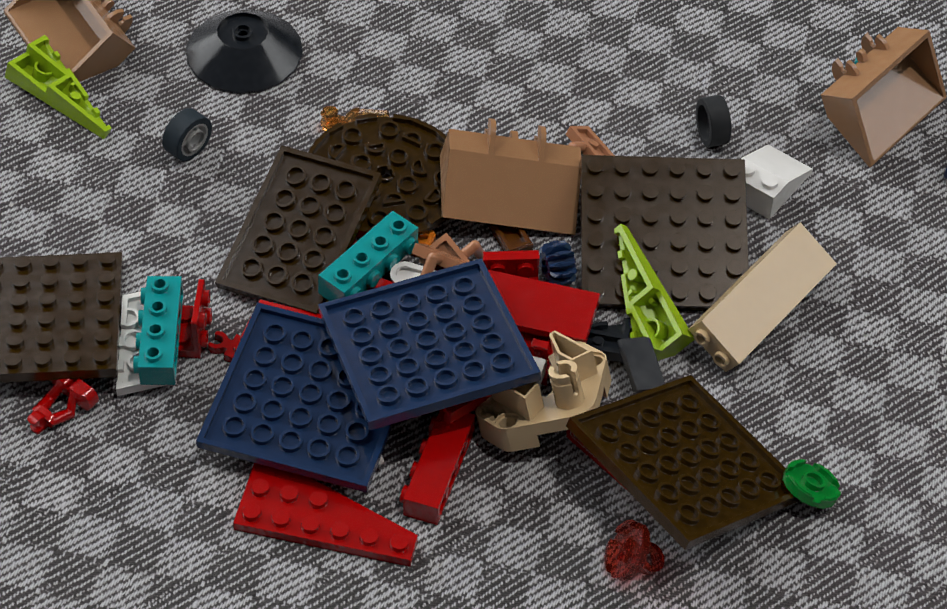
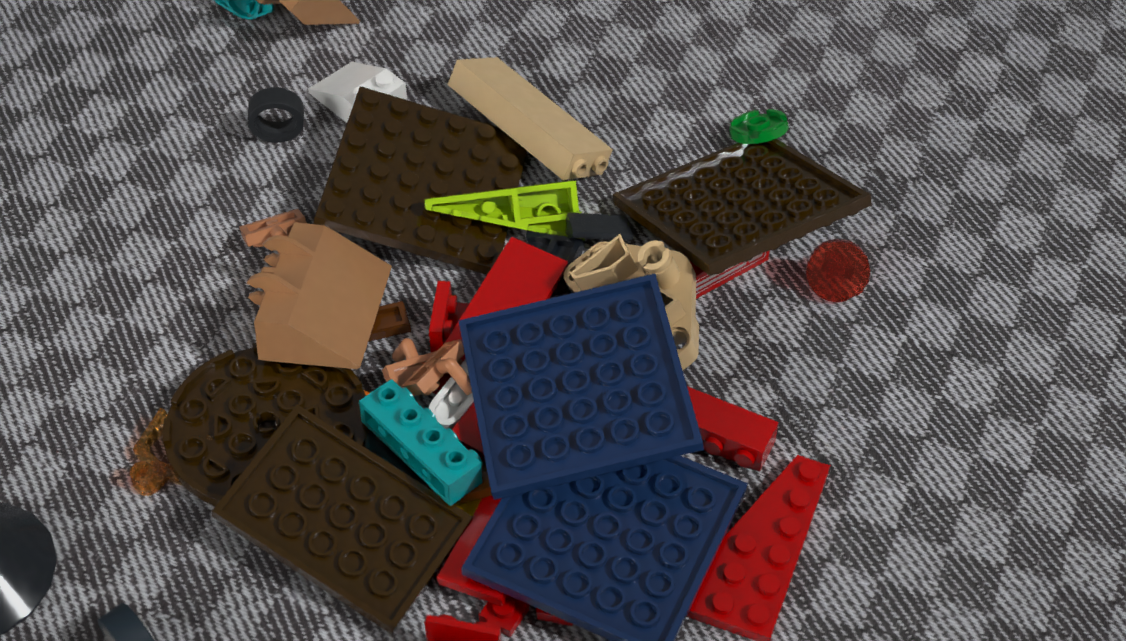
camera: 80 degrees left, 0 degrees up
(557, 263) = (447, 268): dark blue gear -> none

